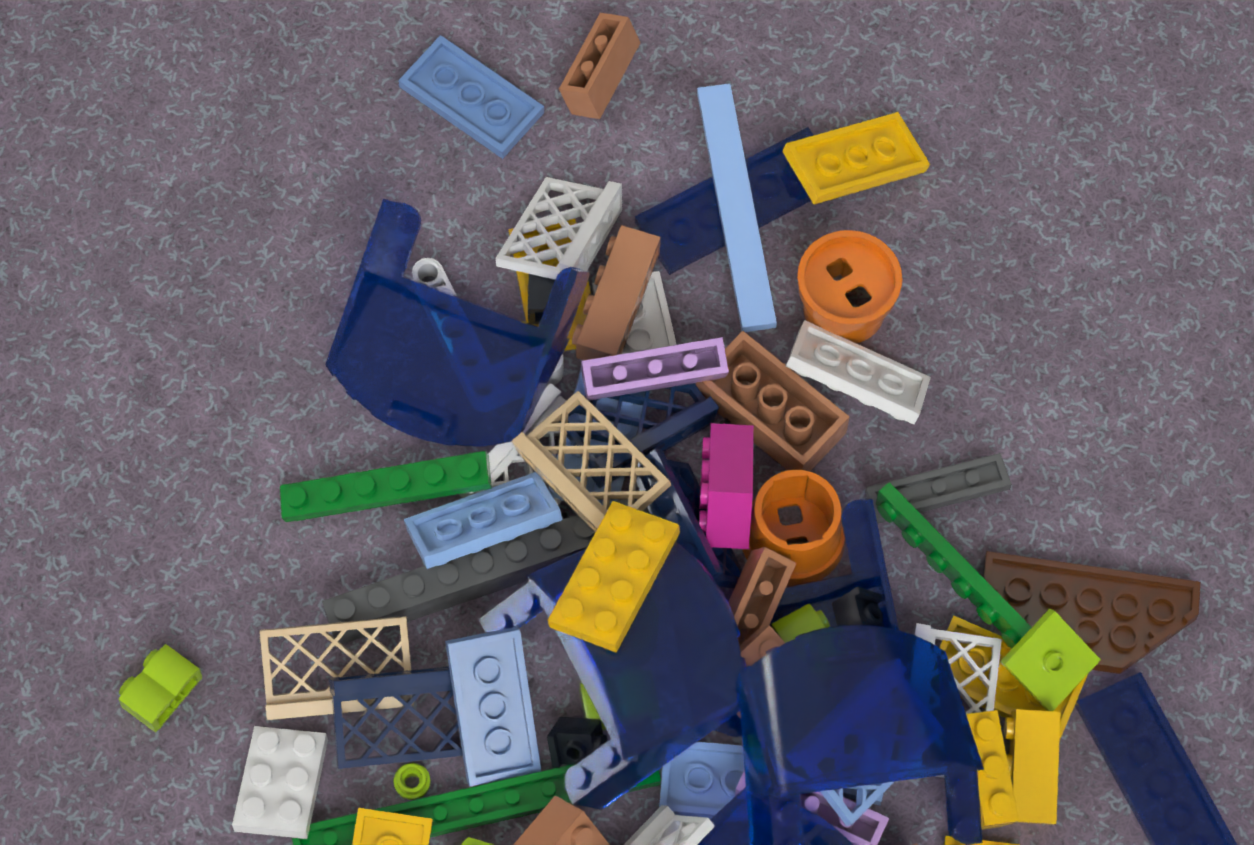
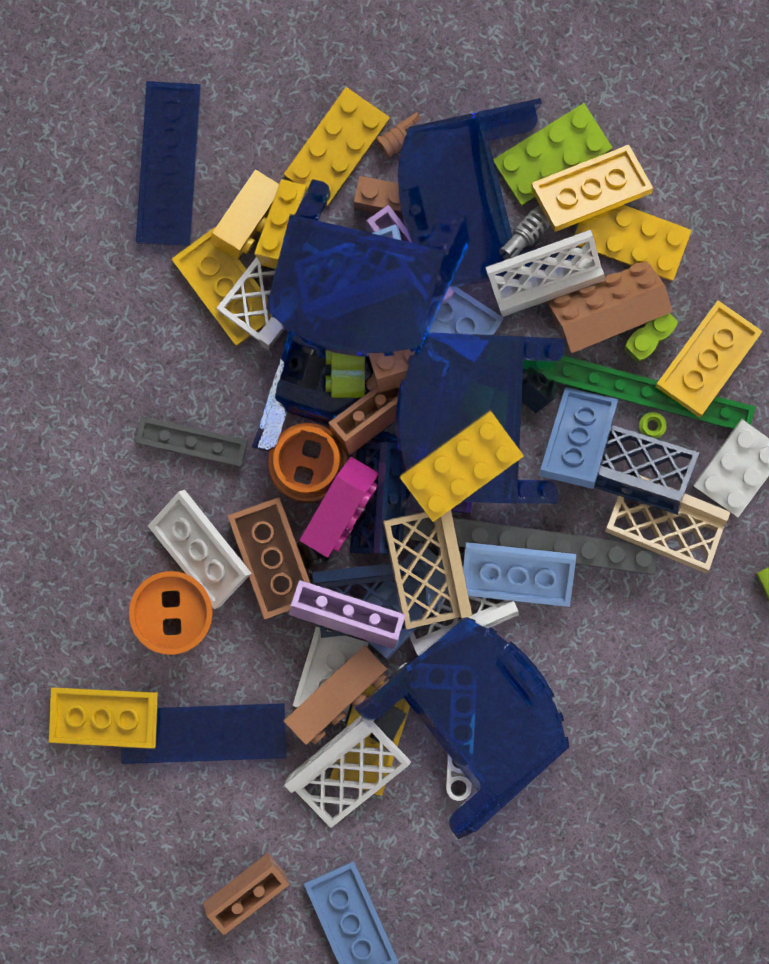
camera: 150 degrees left, 20 degrees up
(385, 486) = (569, 639): green plate -> none
(736, 208) = (210, 726): light blue tile -> none
(947, 560) = (216, 359): green plate -> none
(1050, 660) = (196, 272): lime plate -> none
(1110, 609) = (144, 300): reddish brown plate -> none

